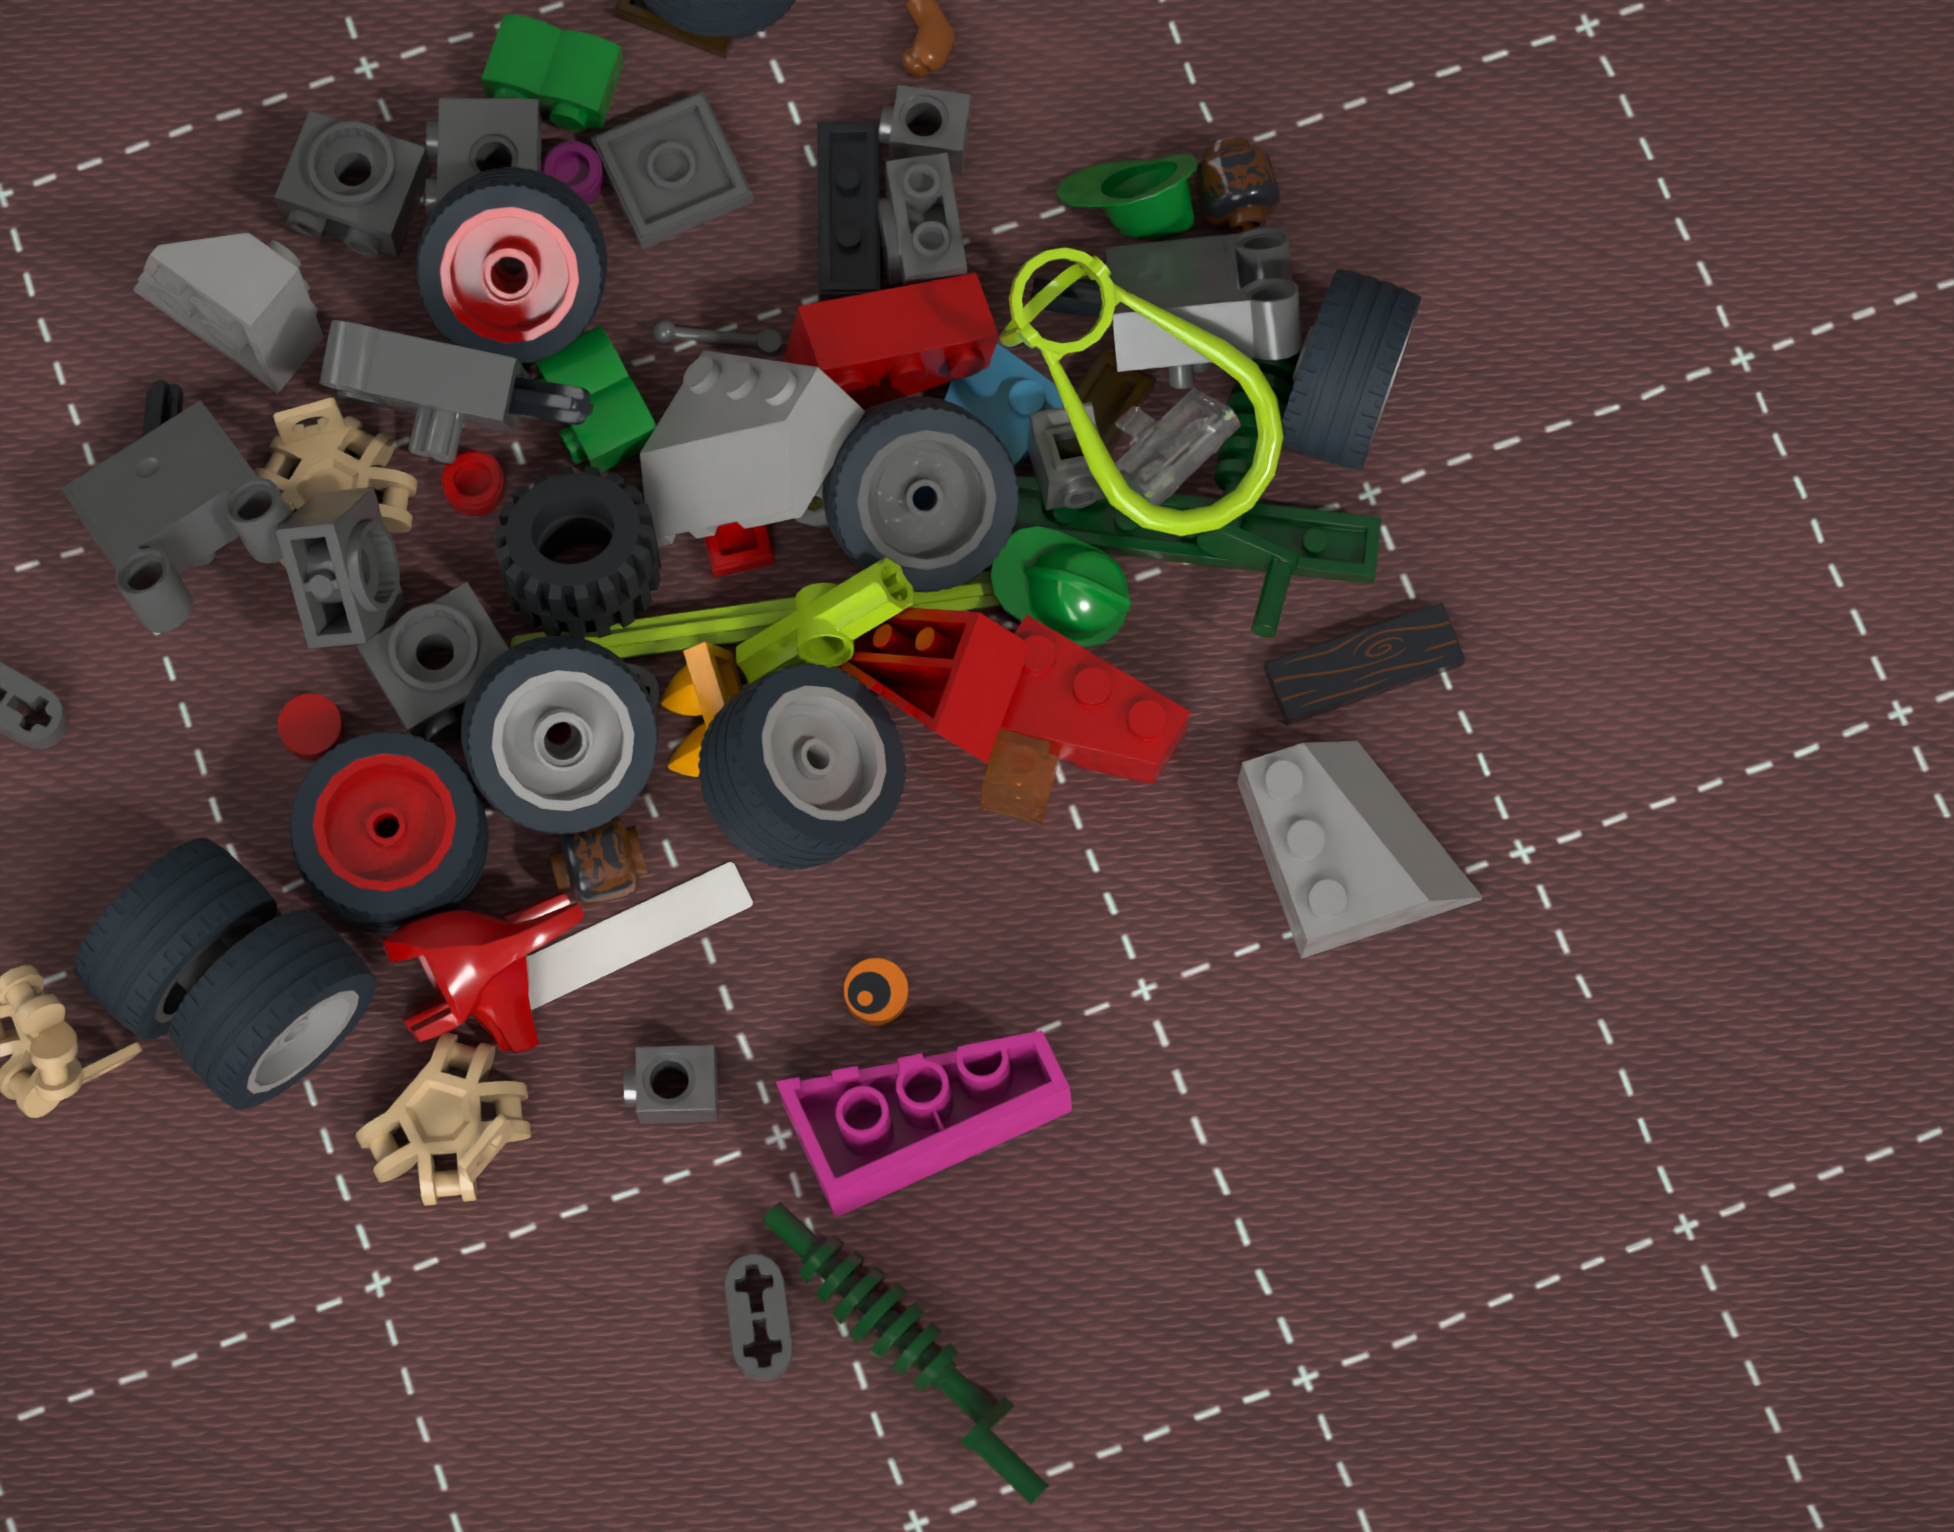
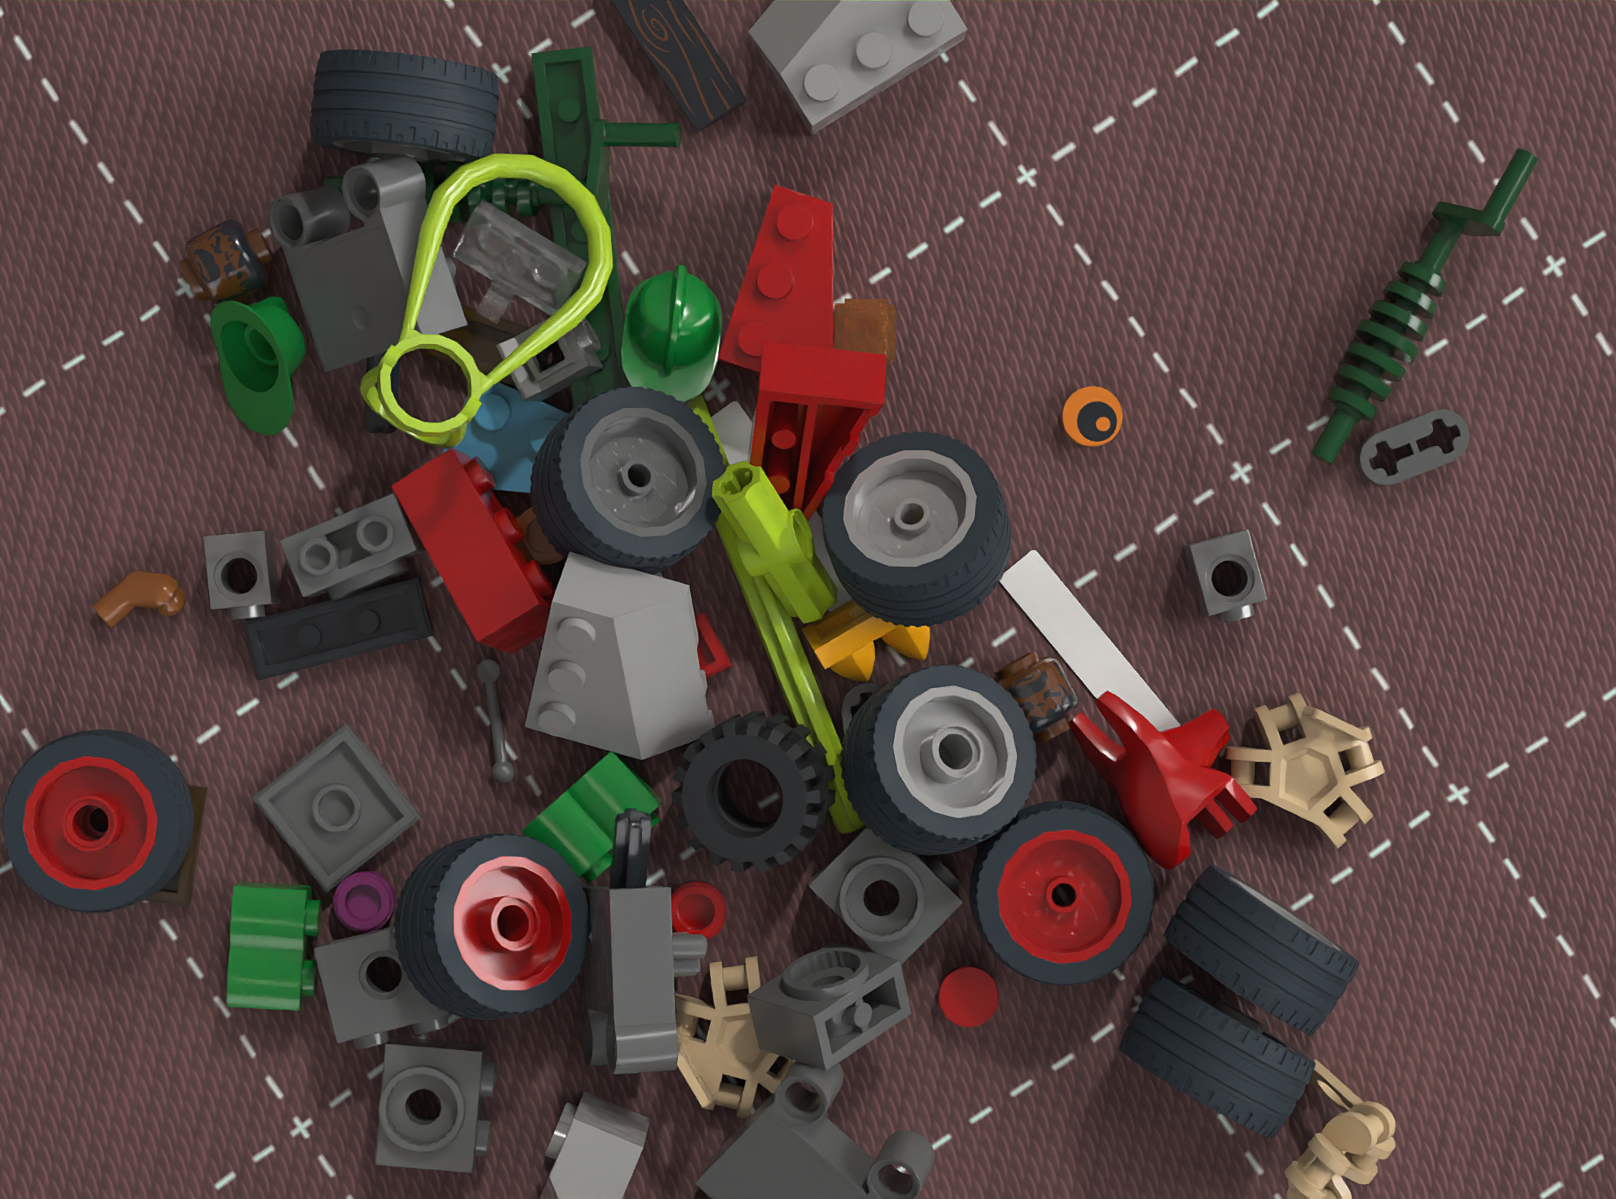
camera: 105 degrees left, 15 degrees up
(920, 1115) = (1212, 357): dark pink wedge -> none

